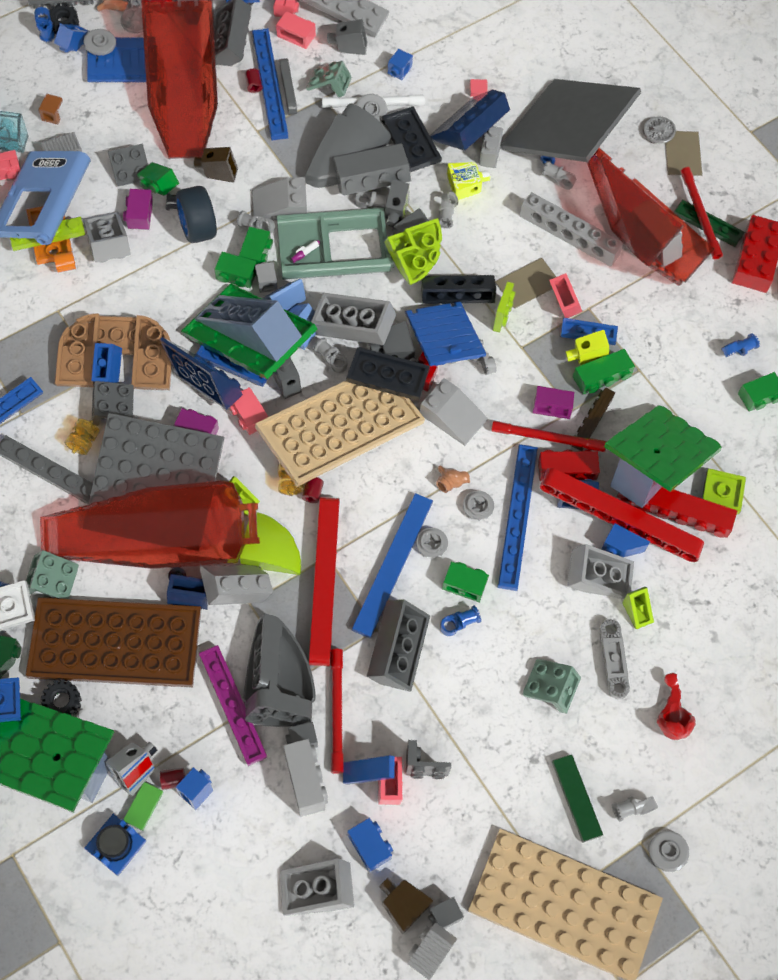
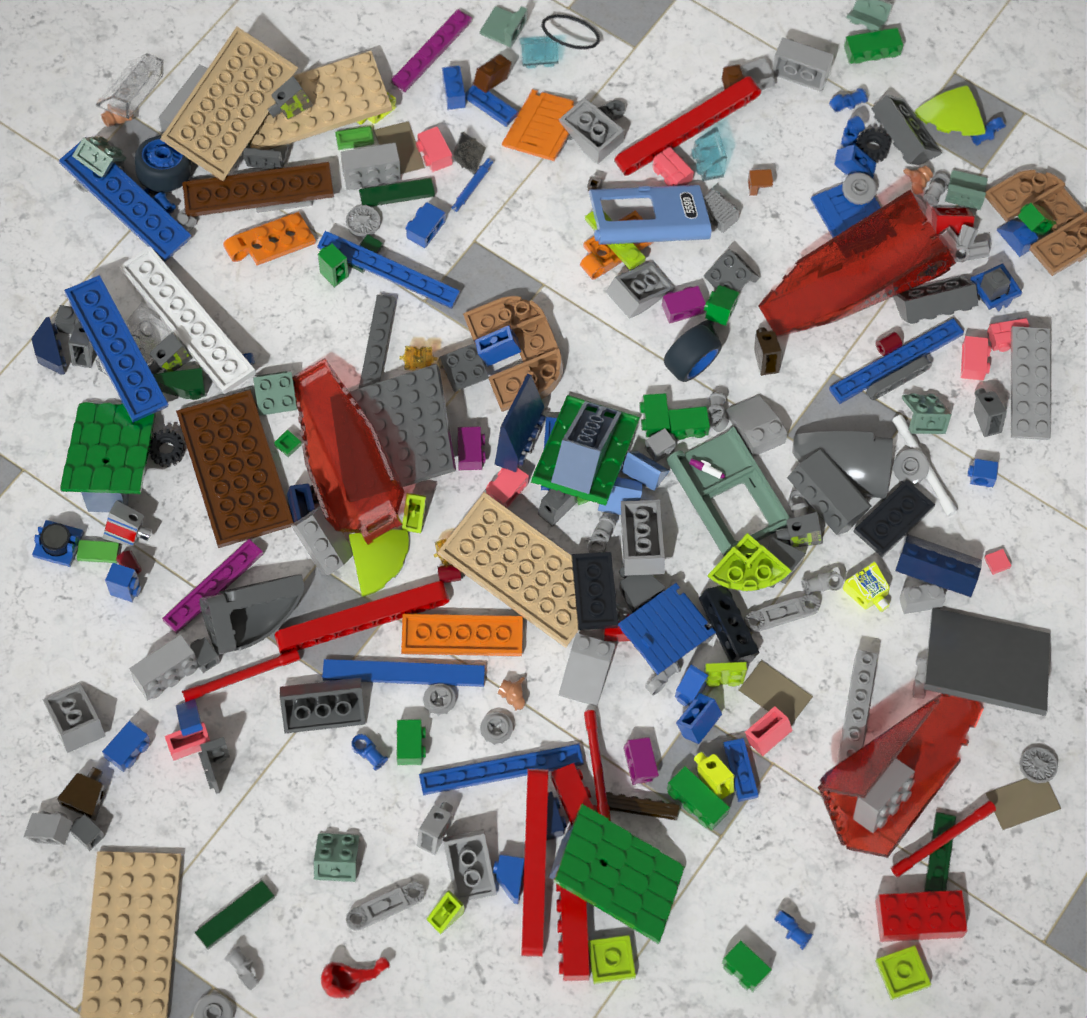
camera: 70 degrees right, 0 degrees up
(10, 17) = (840, 102): none -> blue connector
(112, 584) = (287, 443): none -> green plate
(377, 501) = (462, 635): none -> orange plate
(461, 246) = (782, 613): none -> light grey plate
(504, 336) = (691, 685): none -> blue slope
(535, 342) = (699, 718): none -> blue brick
(558, 587) = (435, 828): none -> light grey torso

